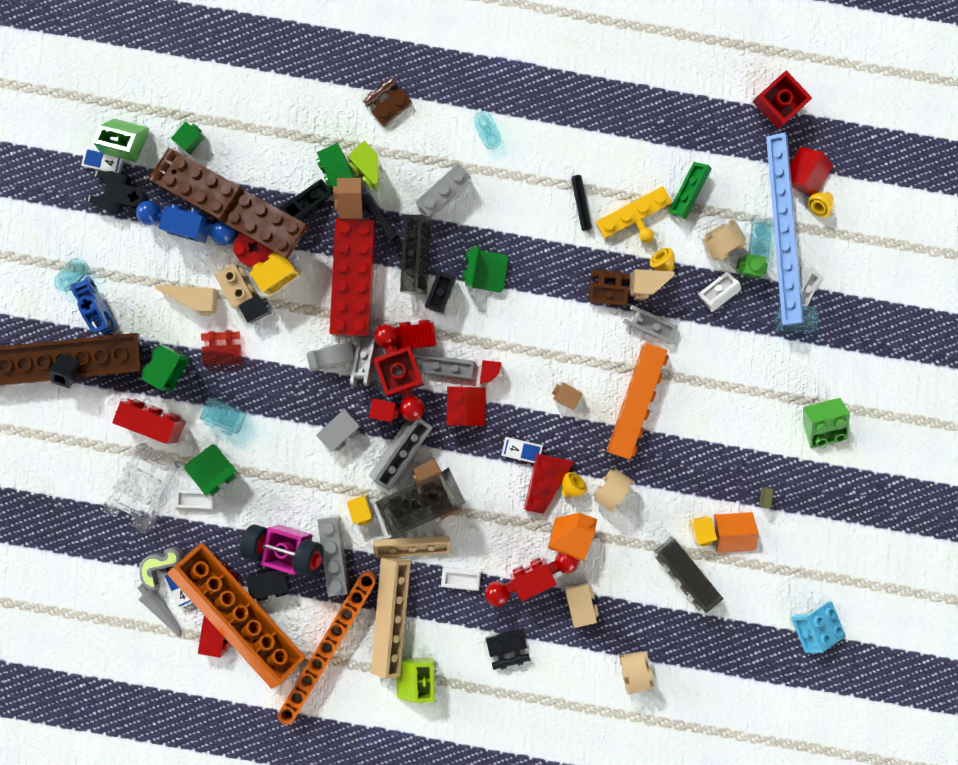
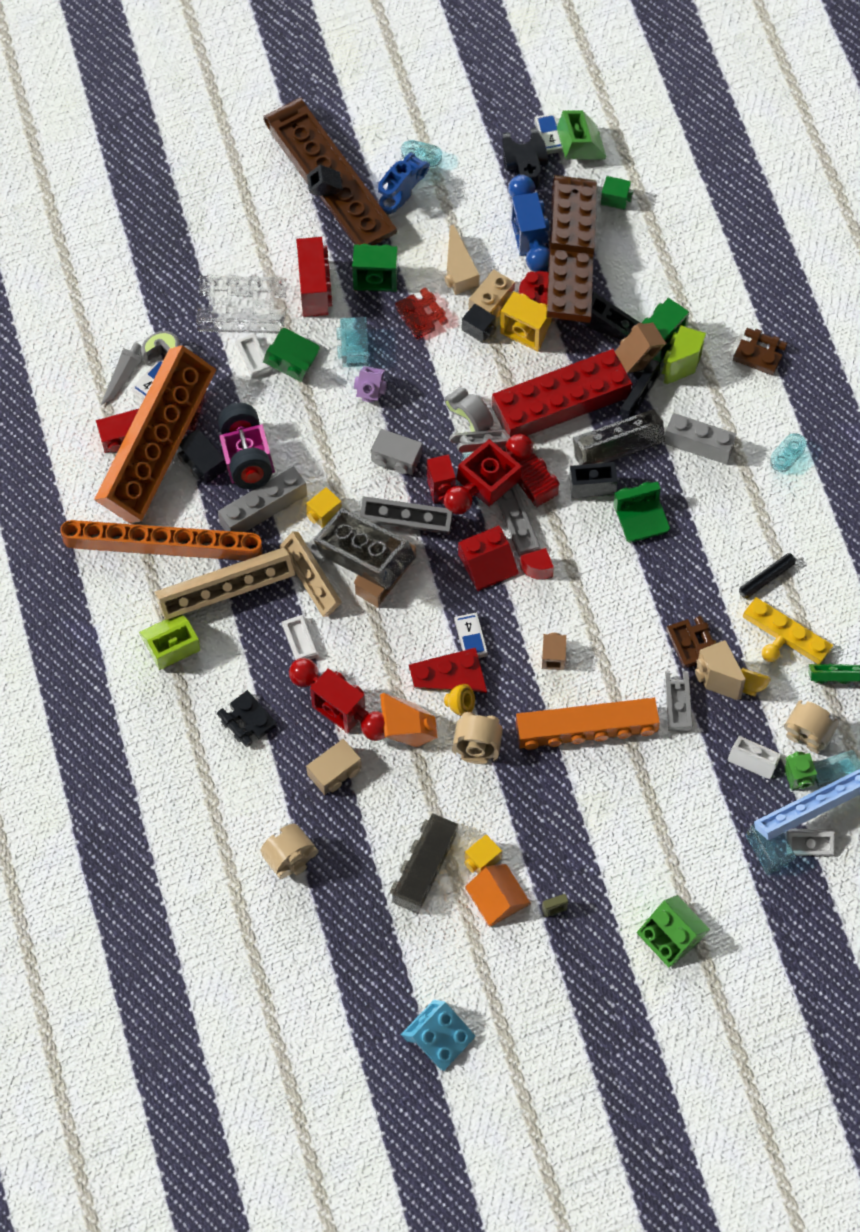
camera: 65 degrees right, 25 degrees down
(269, 422) = (370, 384): none -> lavender brick

